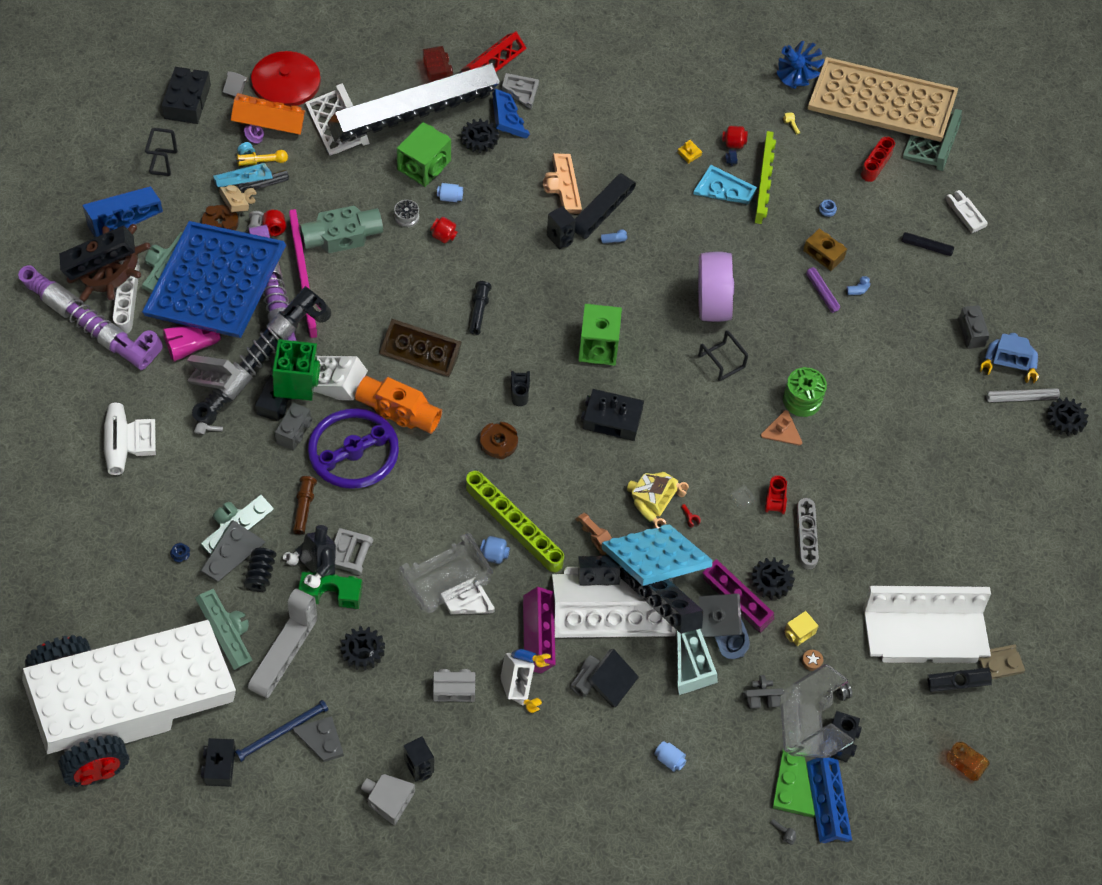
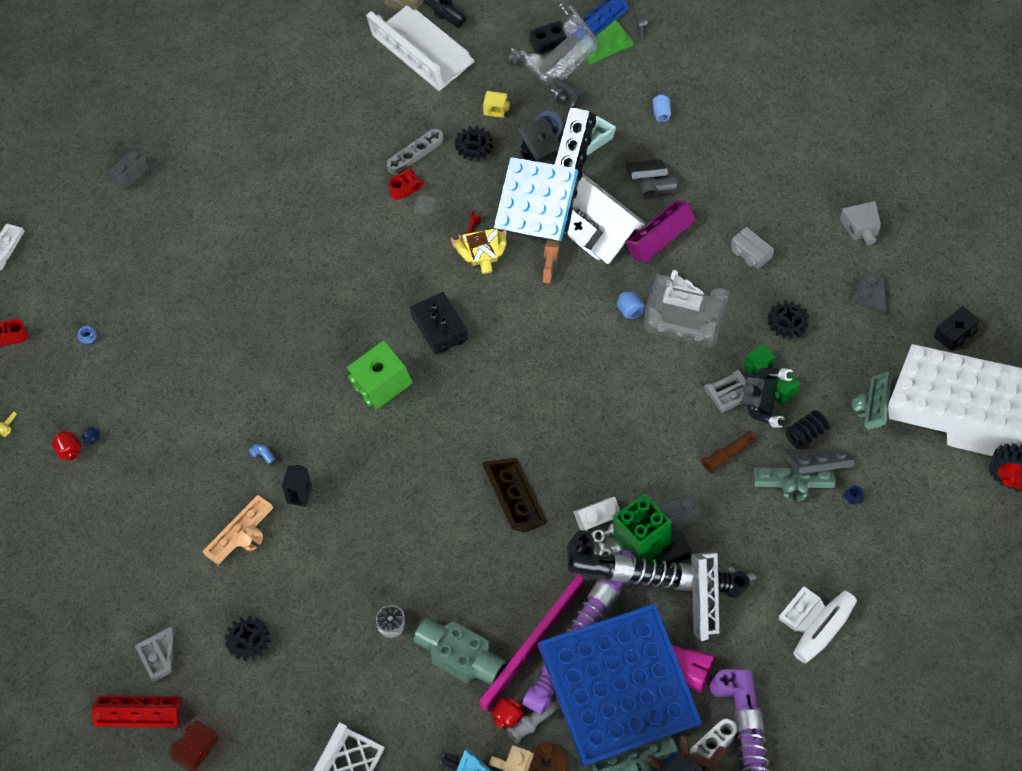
camera: 125 degrees left, 0 degrees up
(241, 754) = (893, 317): dark blue bar -> none
(302, 620) = (819, 367): light grey beam -> none
(353, 448) = (647, 466): dark purple piece -> none
(399, 403) = (583, 456): orange brick -> none
(413, 103) = (272, 703): brick -> none
(419, 759) = (824, 219): black brick -> none
(424, 154) = (316, 653): bright green brick -> none
(444, 230) = (381, 576): red head -> none
(450, 192) = (335, 606): light blue brick -> none
(480, 301) = (424, 492): black pin -> none
(496, 449) = (534, 386): reddish brown plate -> none
(506, 114) = (204, 635): blue wing -> none
(517, 529) = (595, 288): lime beam -> none
(517, 676) = (706, 211): white torso -> none
(520, 385) = (474, 402): black piece -> none
(603, 205) = (236, 484): black beam -> none
(689, 151) = (112, 471): yellow tile -> none
(708, 351) = (330, 287): black piece -> none
(715, 286) = (260, 325): lavender wheel -> none
(724, 186) = (131, 418): medium azure wing -> none
(751, 606) = (510, 142): magenta brick -> none
(764, 185) = (94, 395): lime plate -> none
(783, 430) = (339, 223): nougat piece -> none
(804, 392) = (297, 221): bright green wheel -> none
(812, 660) = (510, 88): medium nougat tile -> none
(823, 290) = (179, 283): medium lavender axle -> none
(825, 249) = (136, 304): pearl gold brick -> none
(861, 287) = (152, 262): medium blue arm -> none
(927, 244) = (64, 250): black axle -> none
(1014, 353) = (133, 133): medium blue torso -> none
(1022, 395) = (164, 111): light grey axle -> none
(1067, 416) = (161, 75): black gear -> none

